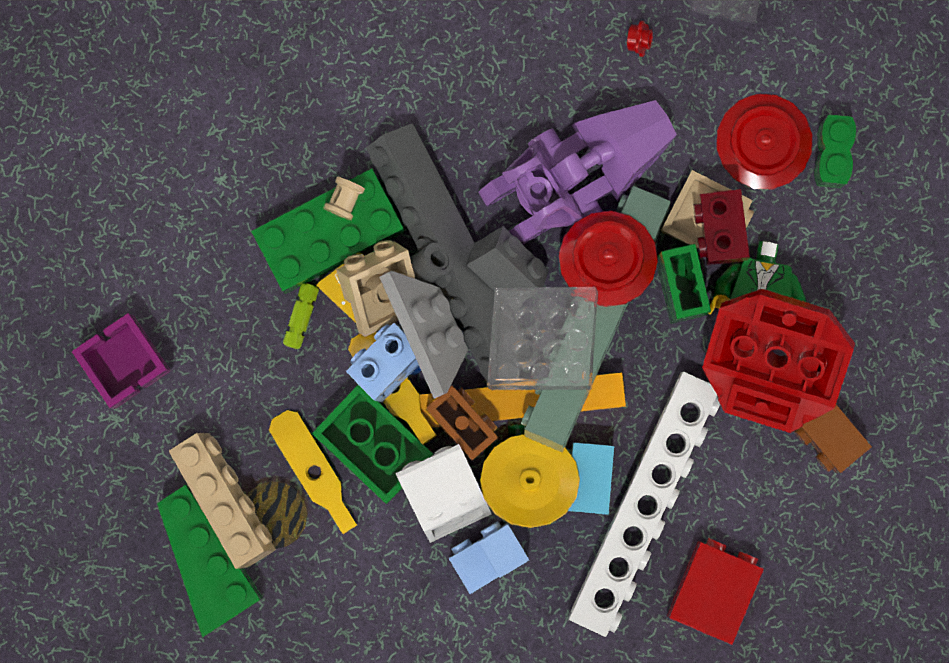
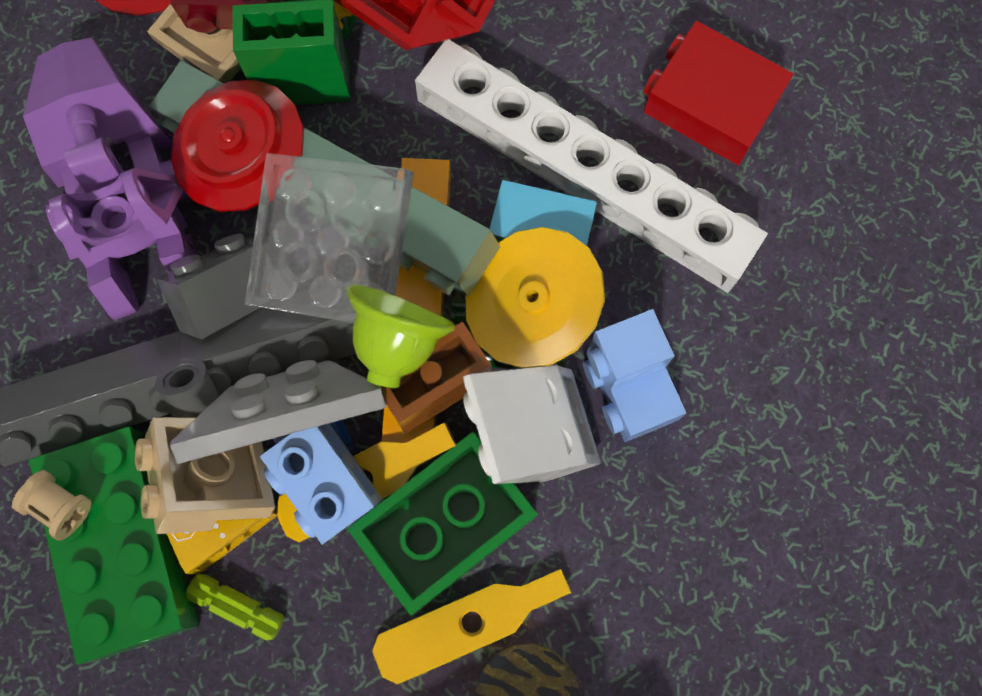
camera: 80 degrees left, 10 degrees down
(480, 397) = (392, 334): none -> lime hat

